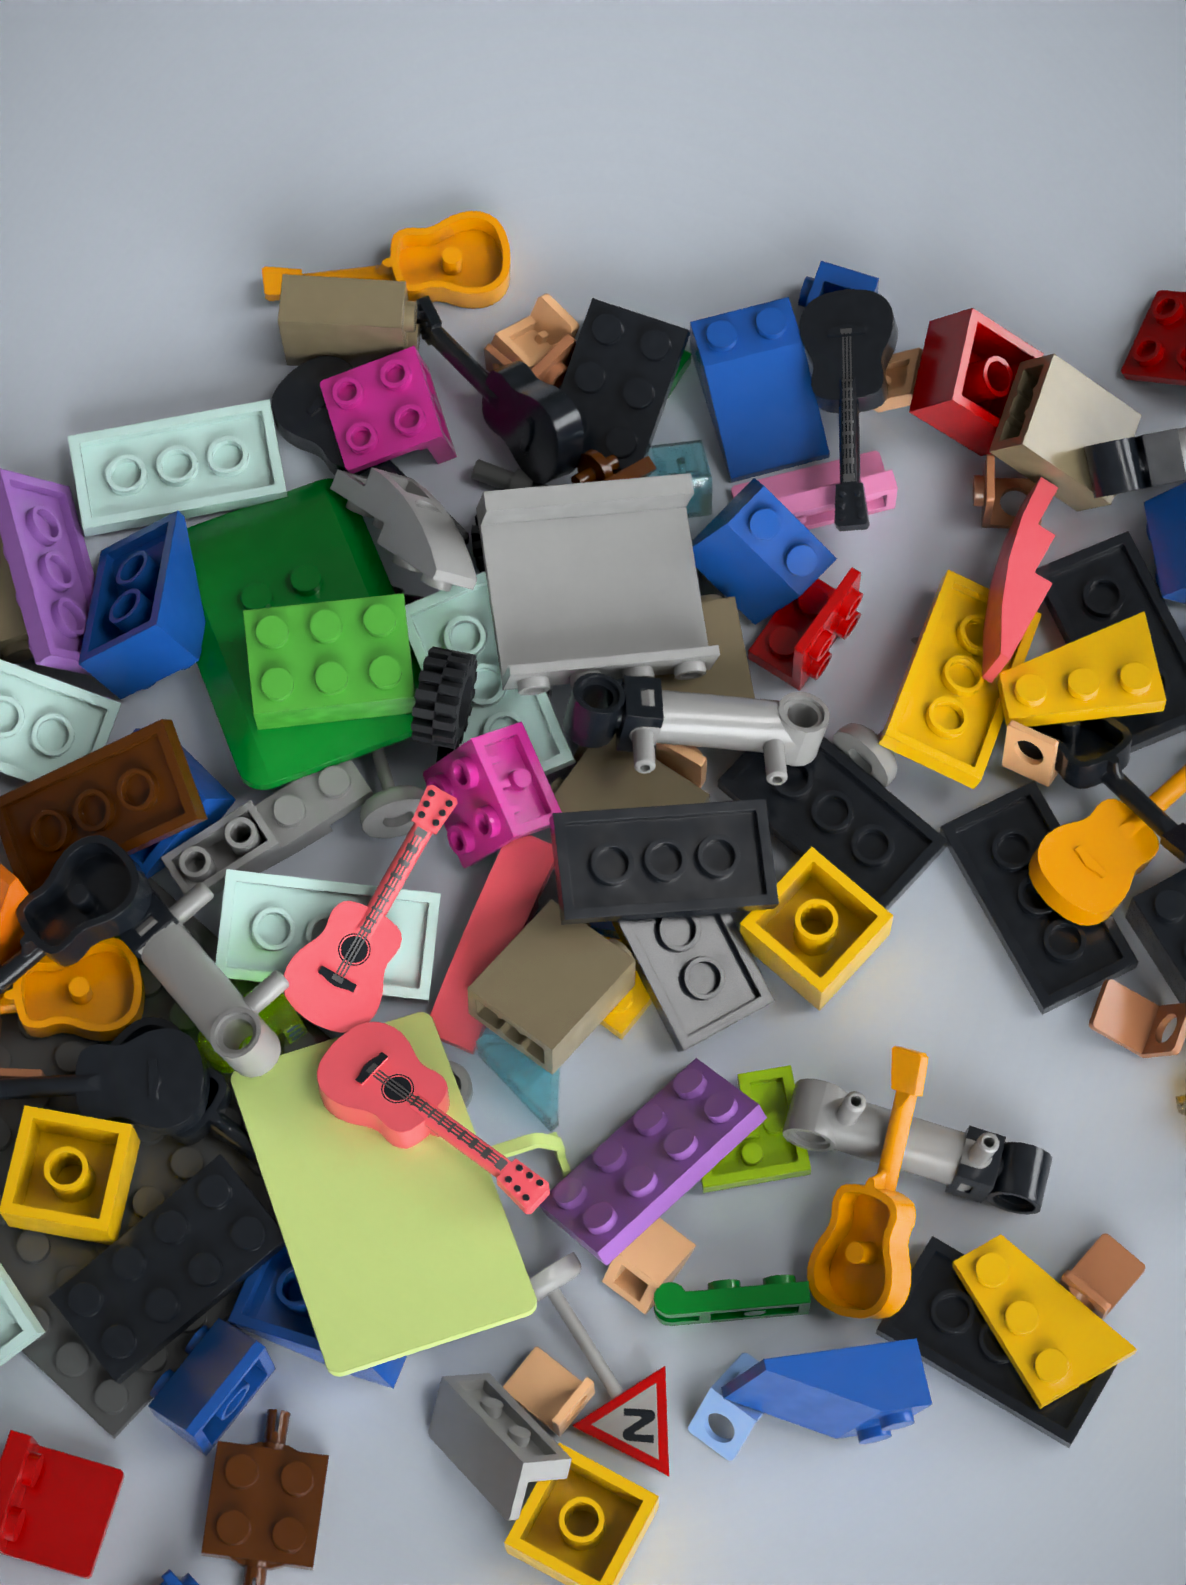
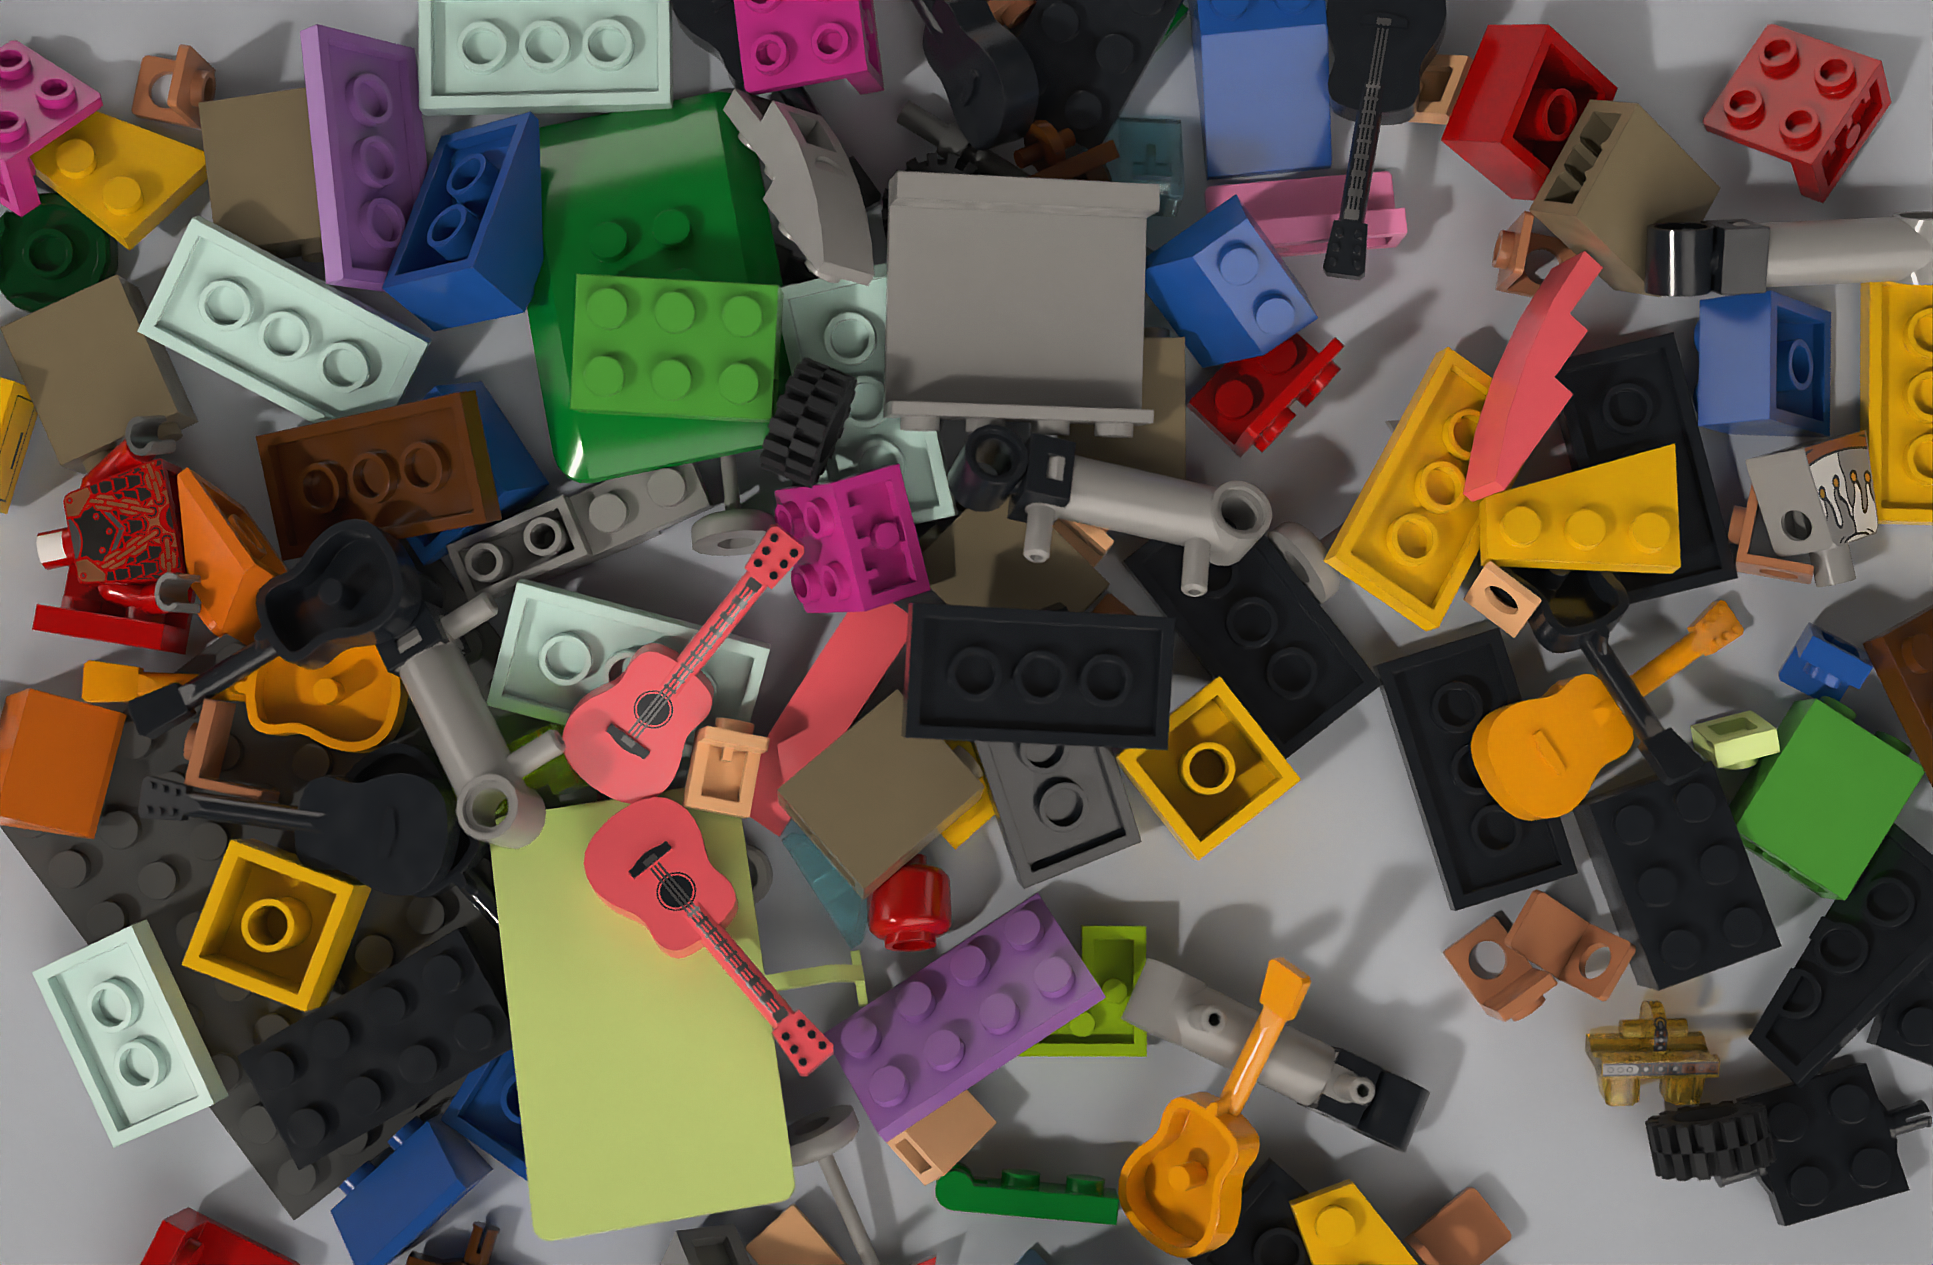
camera: 10 degrees right, 15 degrees up
(419, 990) = (724, 768): none -> light nougat bracket
(593, 1083) = (912, 907): none -> red head
(1107, 1067) = (1511, 993): none -> nougat bracket

